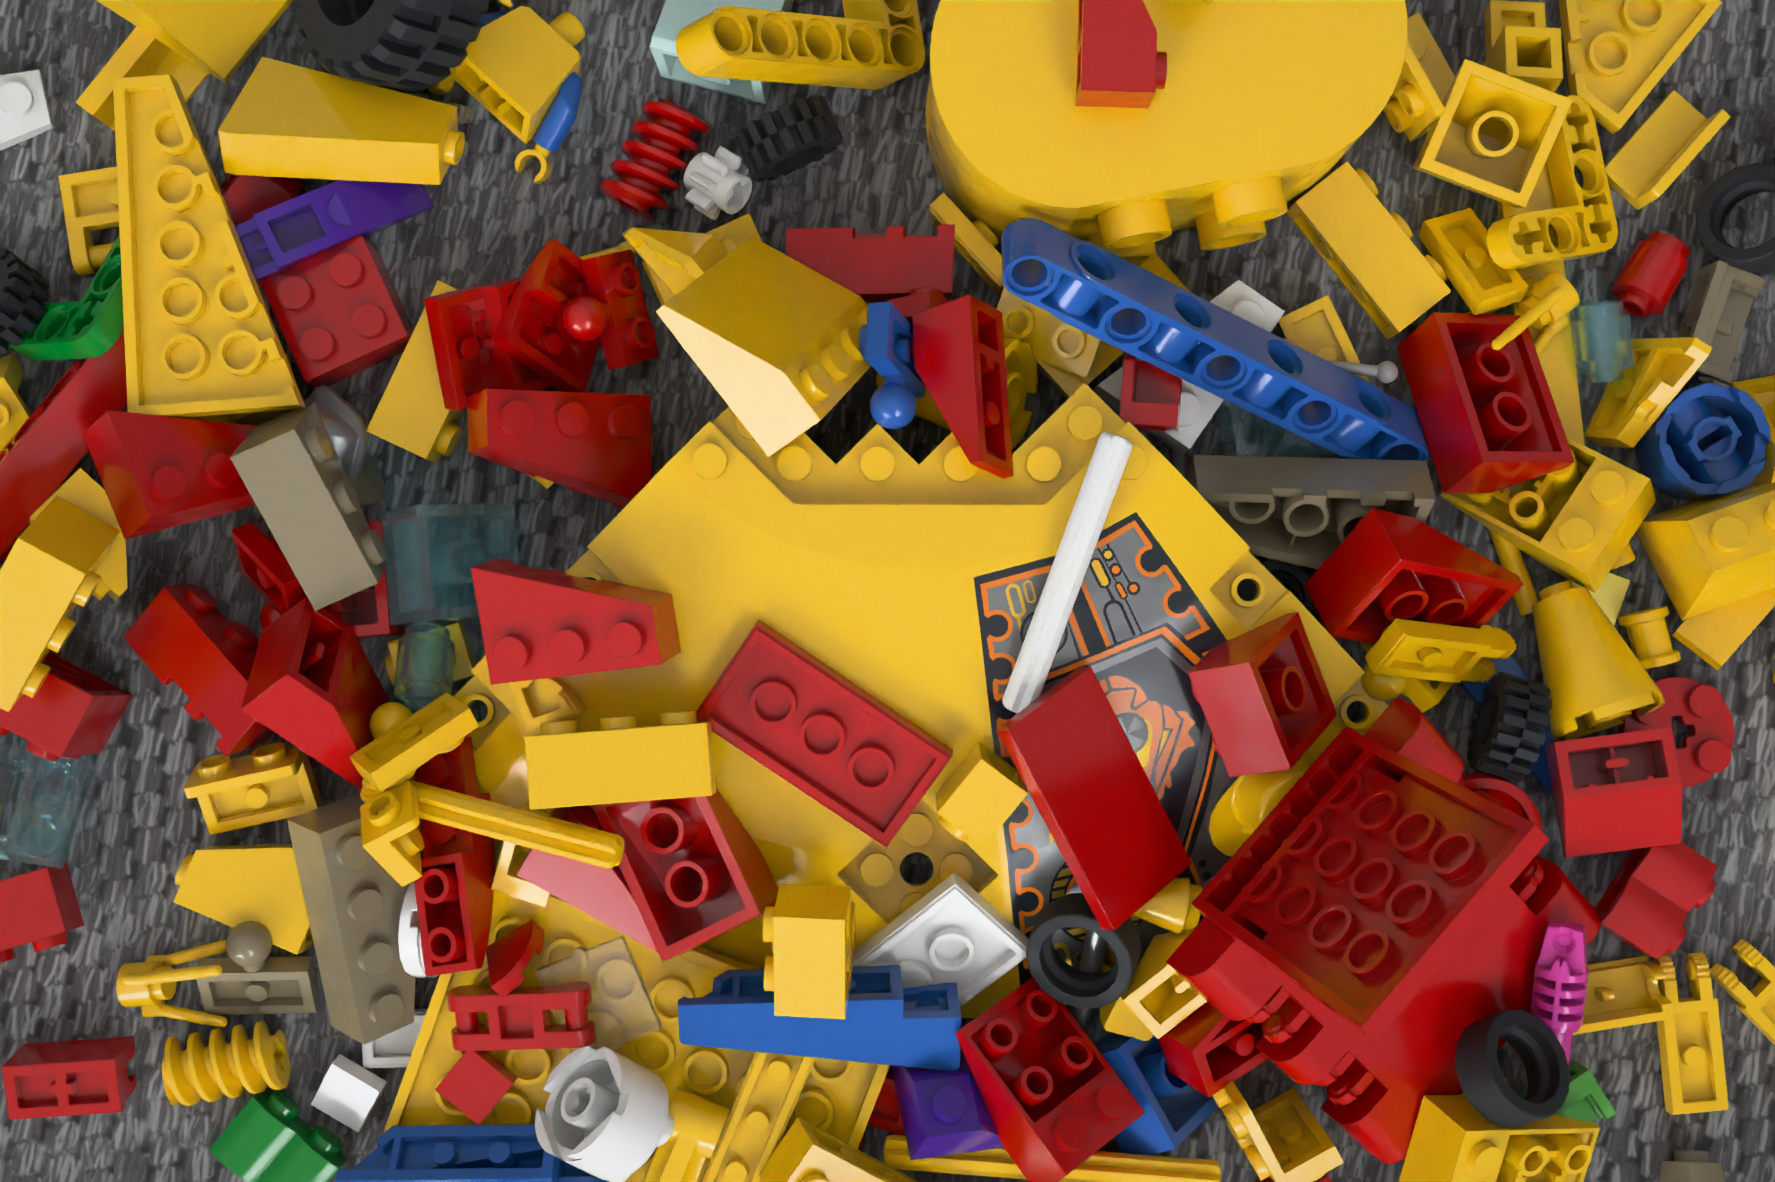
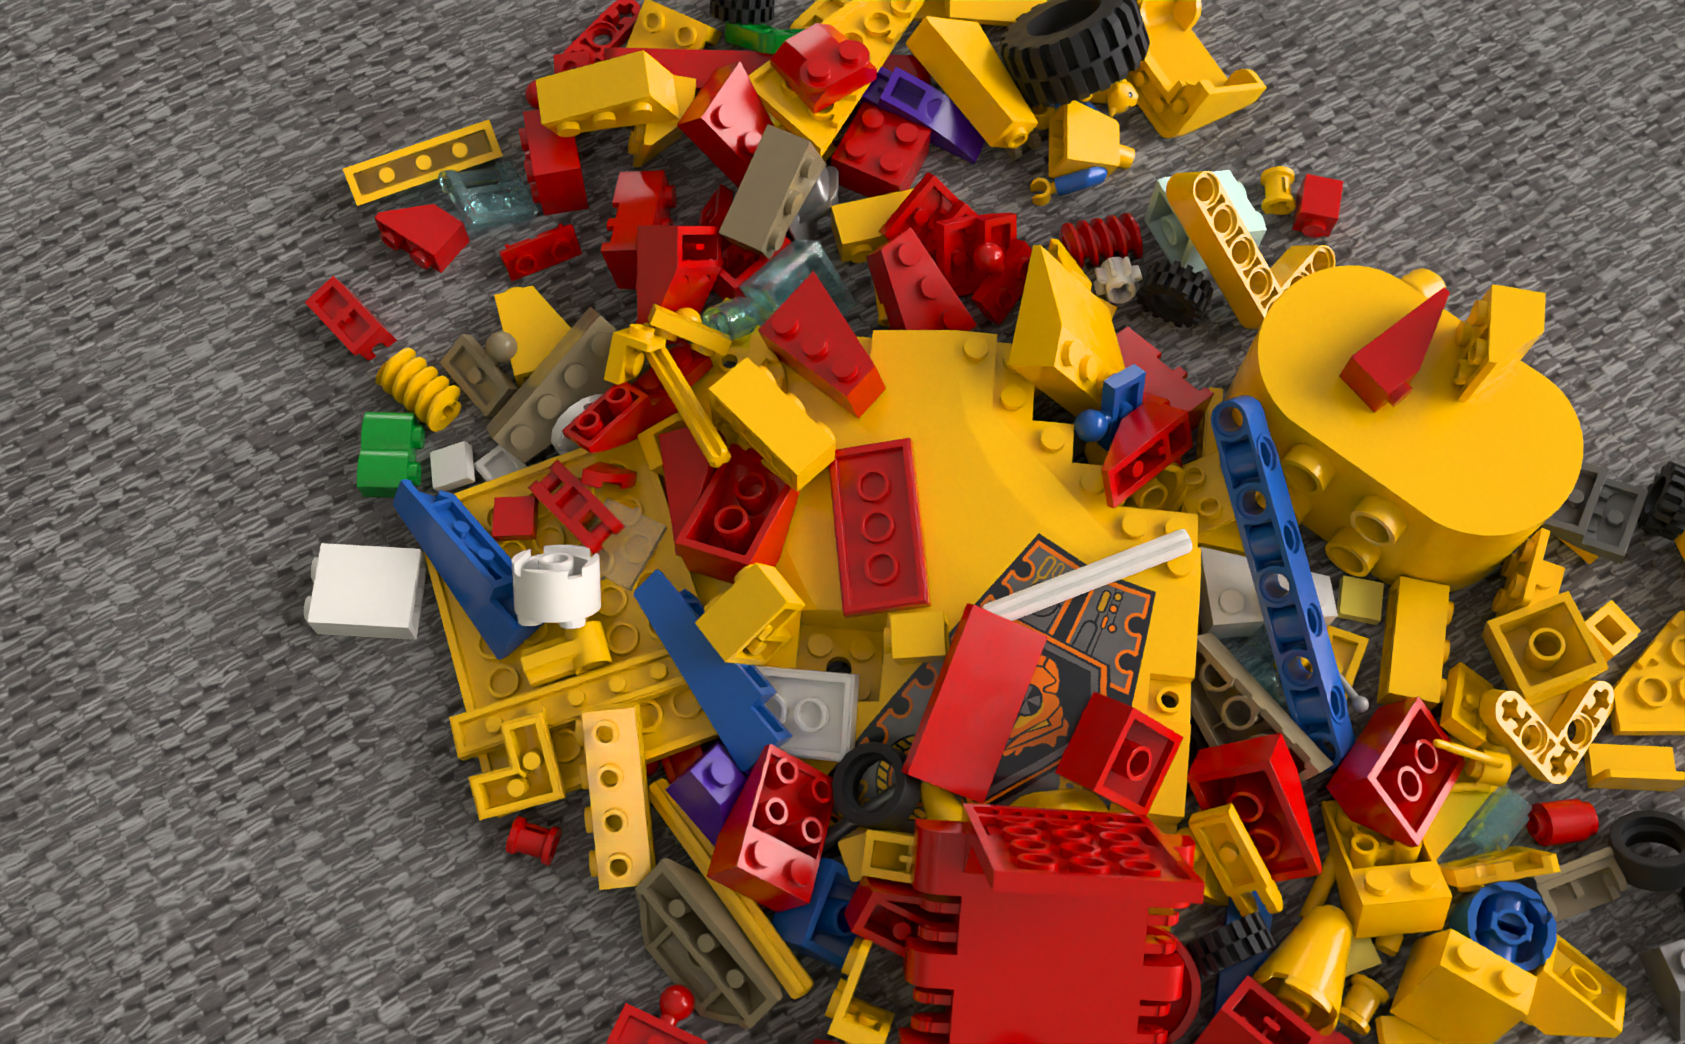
camera: 50 degrees right, 20 degrees down
(143, 820) = (540, 252): none -> red hinge
(154, 981) = (438, 323): yellow plant -> none
(188, 309) = (823, 65): none -> red slope
(253, 788) = (580, 287): yellow bracket -> none
(1149, 396) = (1223, 571): red panel -> none
(1275, 257) = (1360, 600): none -> light yellow tile

